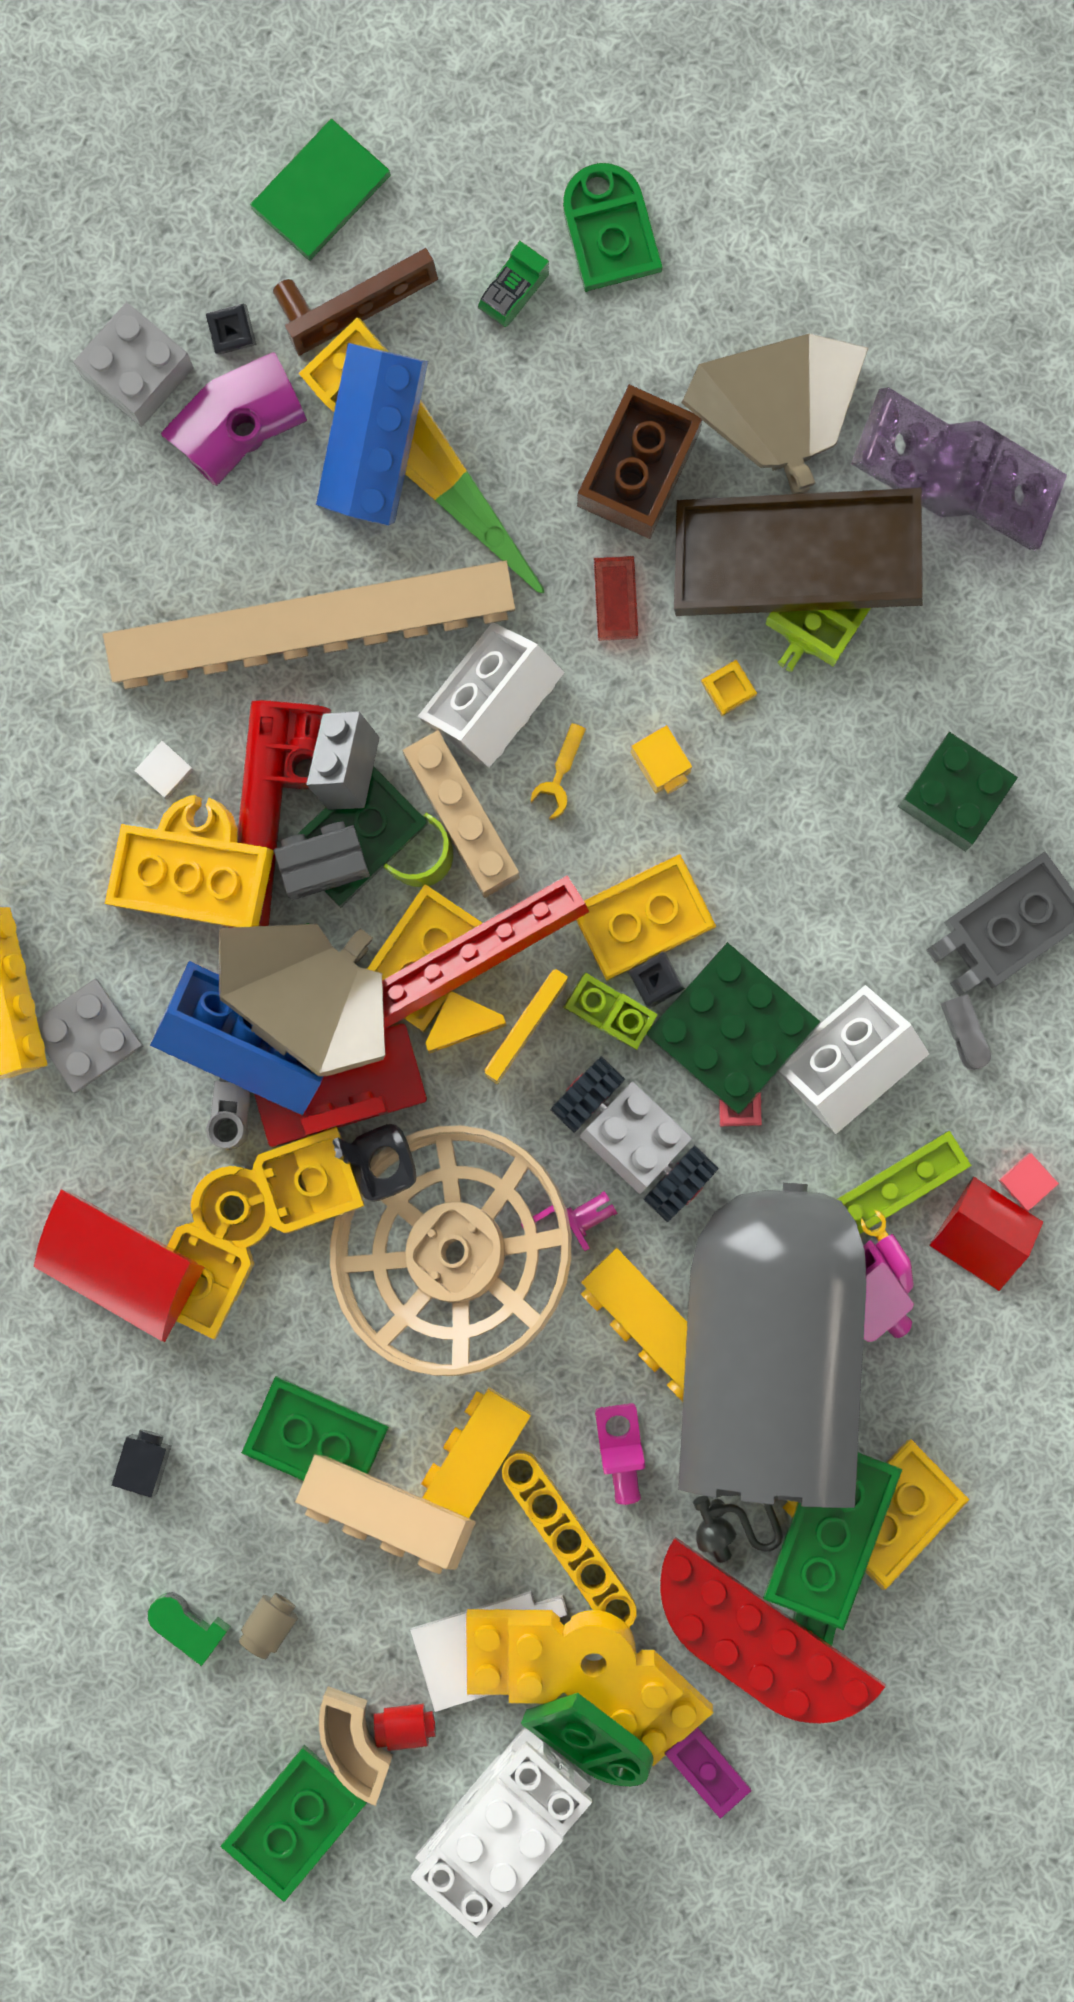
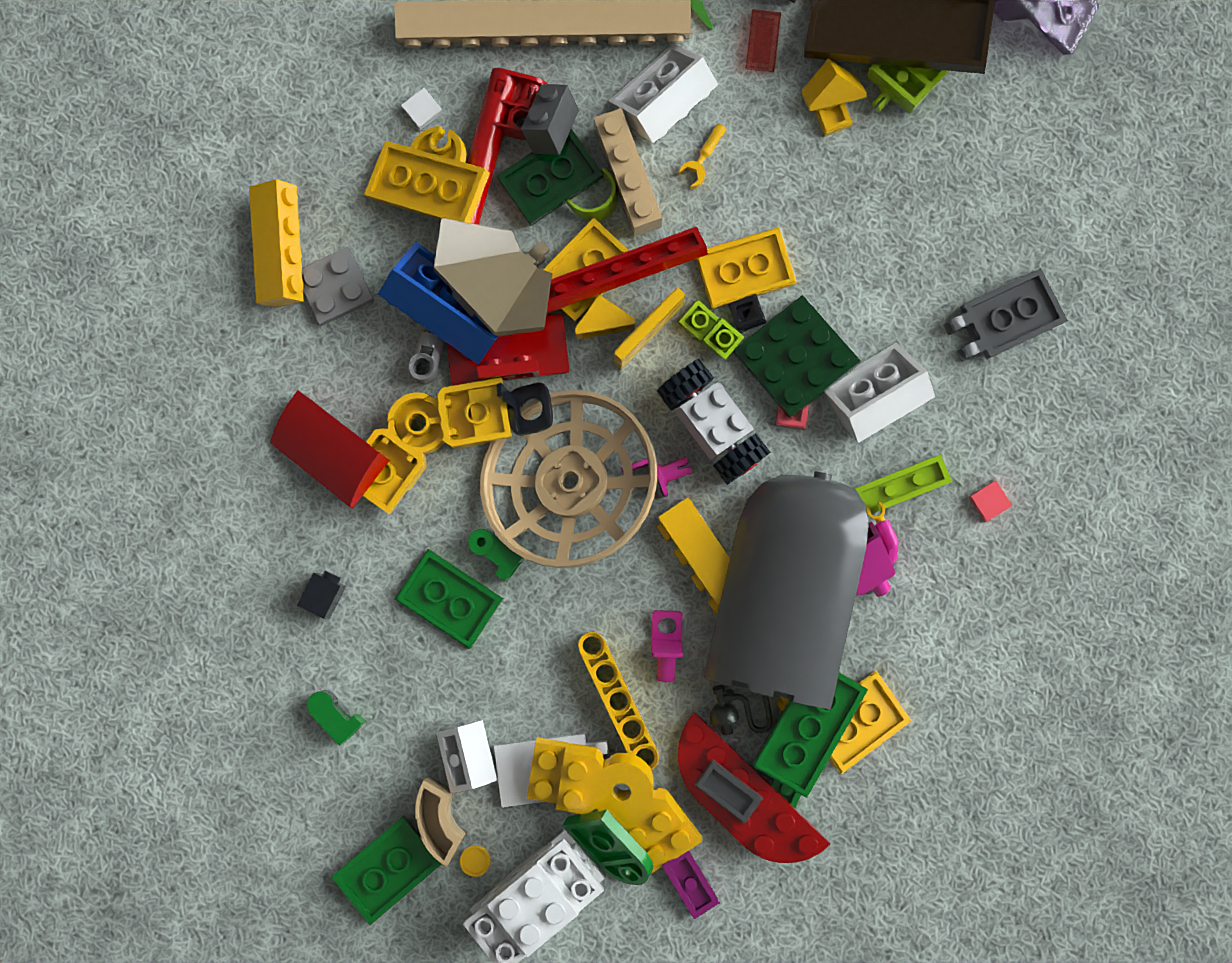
camera: 10 degrees right, 0 degrees up
(268, 1625) = (392, 725): dark tan brick -> none
(321, 861) = (522, 187): dark grey brick -> none
(355, 1357) = (489, 545): none -> green leg
(376, 1651) = (466, 756): none -> white brick
(385, 1513) = (489, 657): tan brick -> none
(404, 1727) = (477, 814): red brick -> none
(411, 1790) = (475, 861): none -> yellow piece
(475, 1452) = (551, 640): yellow brick -> none
(662, 761) = (777, 158): yellow brick -> none
(721, 649) = (832, 87): none -> yellow slope
(738, 1638) = (728, 791): none -> dark grey tile
(957, 791) = (985, 214): dark green brick -> none
(967, 1032) = (963, 387): flat silver bar -> none
(987, 1234) = (954, 534): red slope -> none

